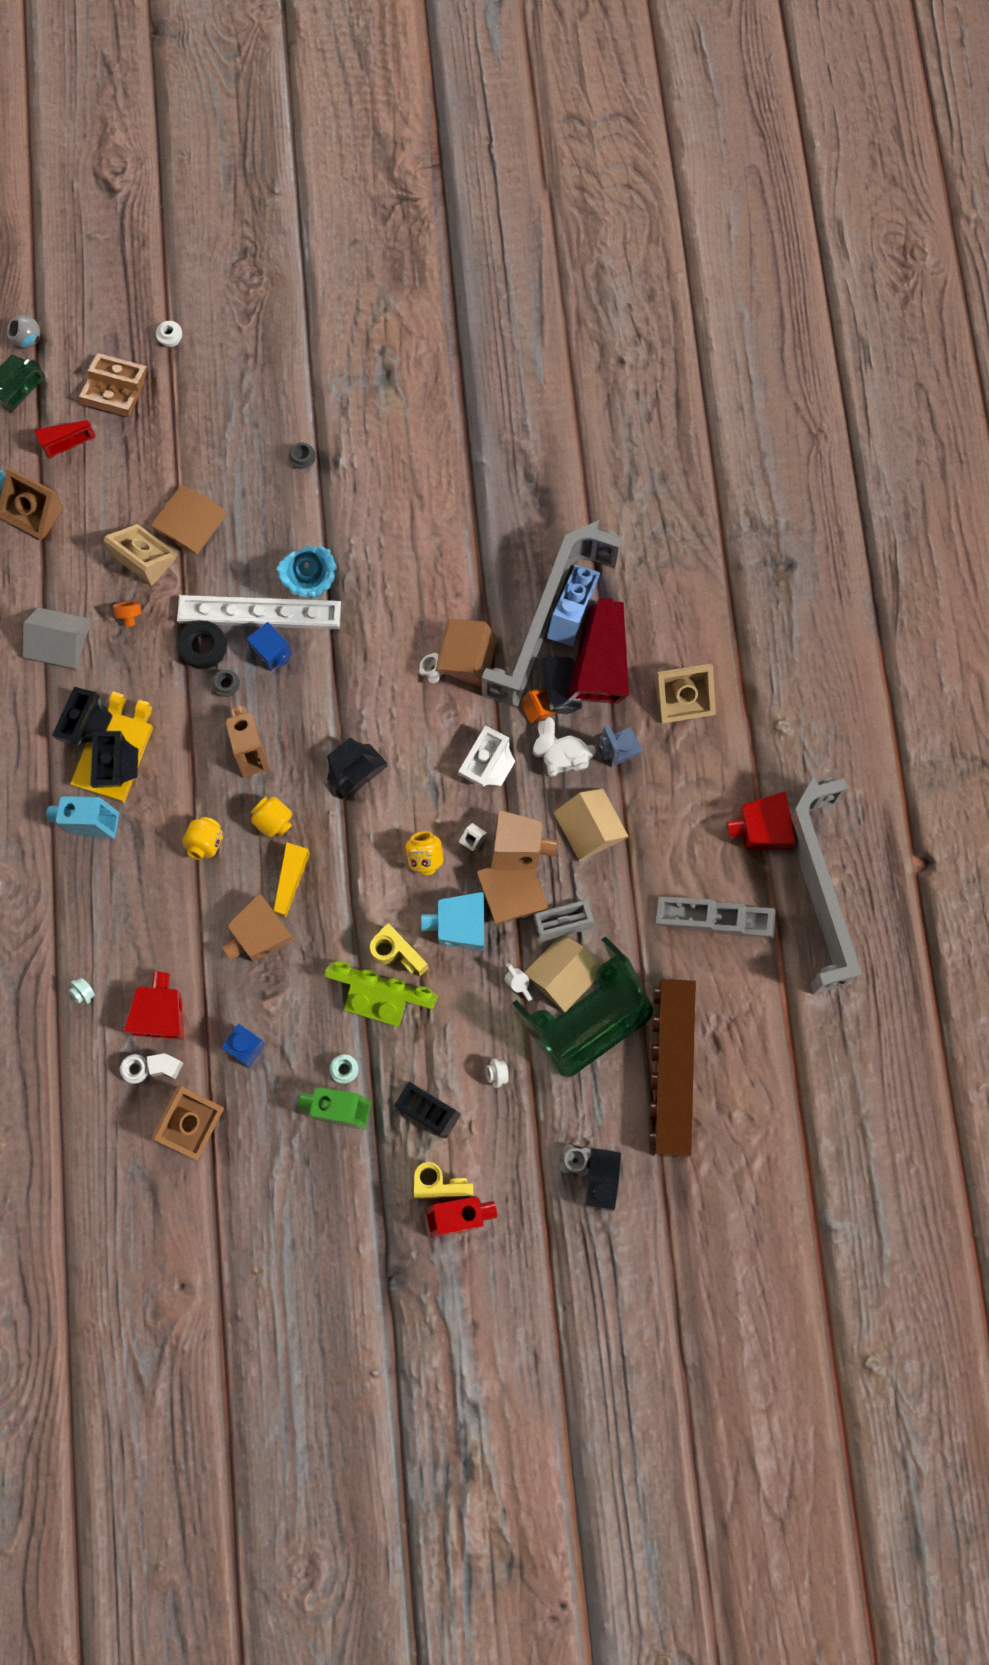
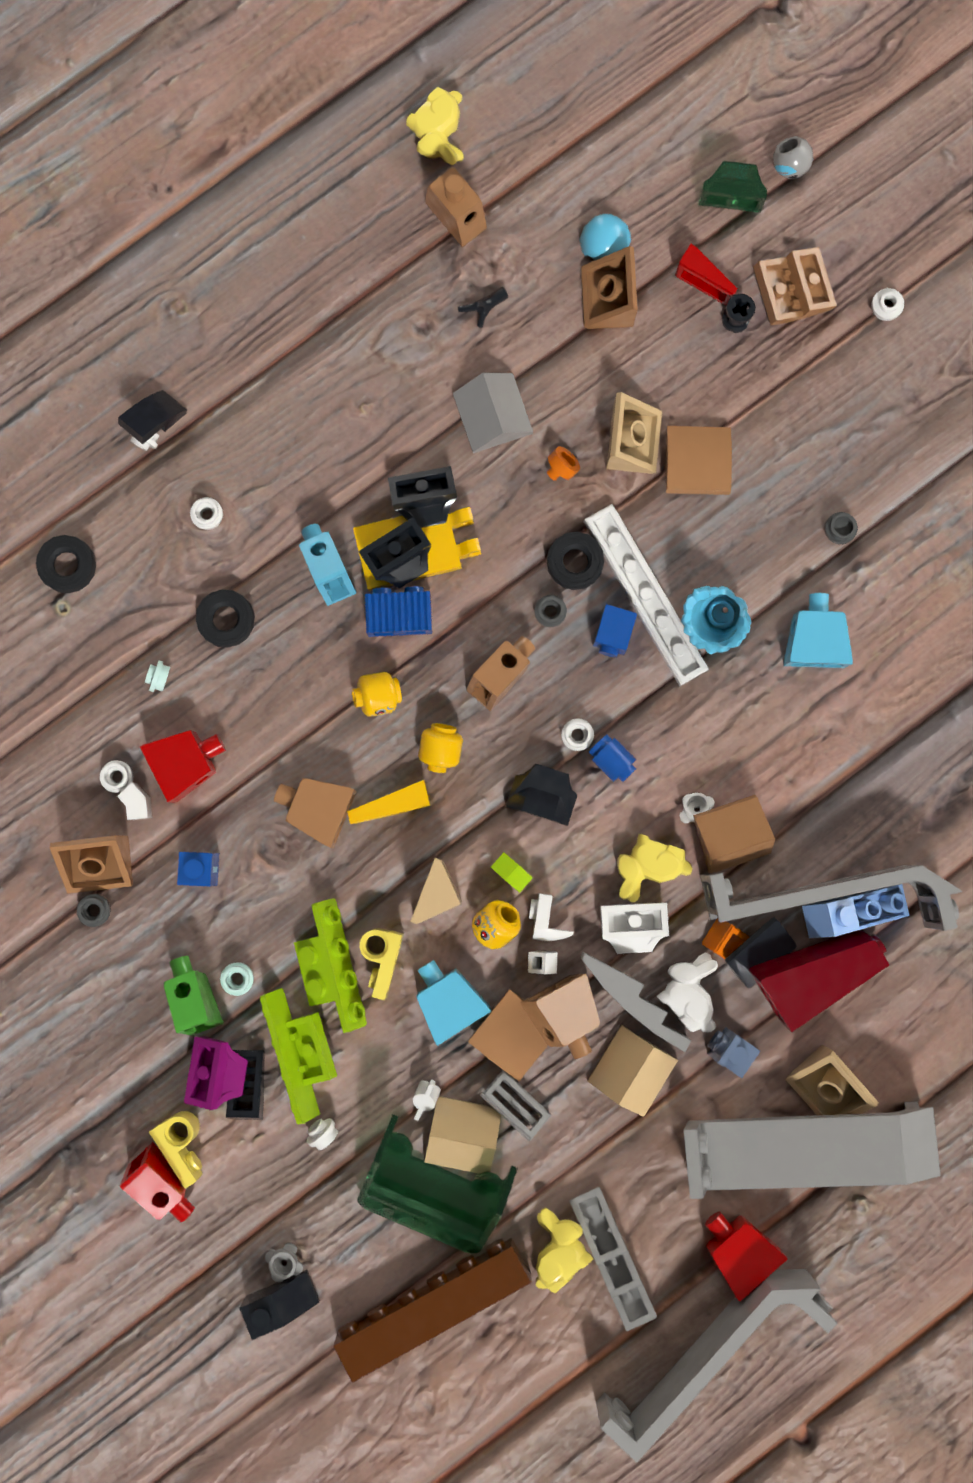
camera: 60 degrees right, 10 degrees up
(63, 902) = (211, 604): none -> black tyre
(105, 431) = (739, 304): none -> black bush
(154, 788) = (398, 612): none -> blue brick
(214, 1144) = (84, 914): none -> dark grey plate
(323, 710) = (585, 727): none -> white plate
(360, 702) = (613, 758): none -> blue brick
(367, 514) = (818, 637): none -> medium azure torso
(375, 877) = (437, 894): none -> tan slope
(394, 821) = (511, 872): none -> lime piece
(402, 1124) = (214, 1073): none -> magenta slope
(427, 1050) = (300, 1053): none -> lime bracket
(435, 817) = (540, 912): none -> white plate
(449, 719) = (650, 861): none -> light yellow animal
(530, 793) = (626, 993): none -> light grey slope
(691, 950) = (562, 1255): none -> light yellow animal
(719, 731) = (812, 1151): none -> light grey panel

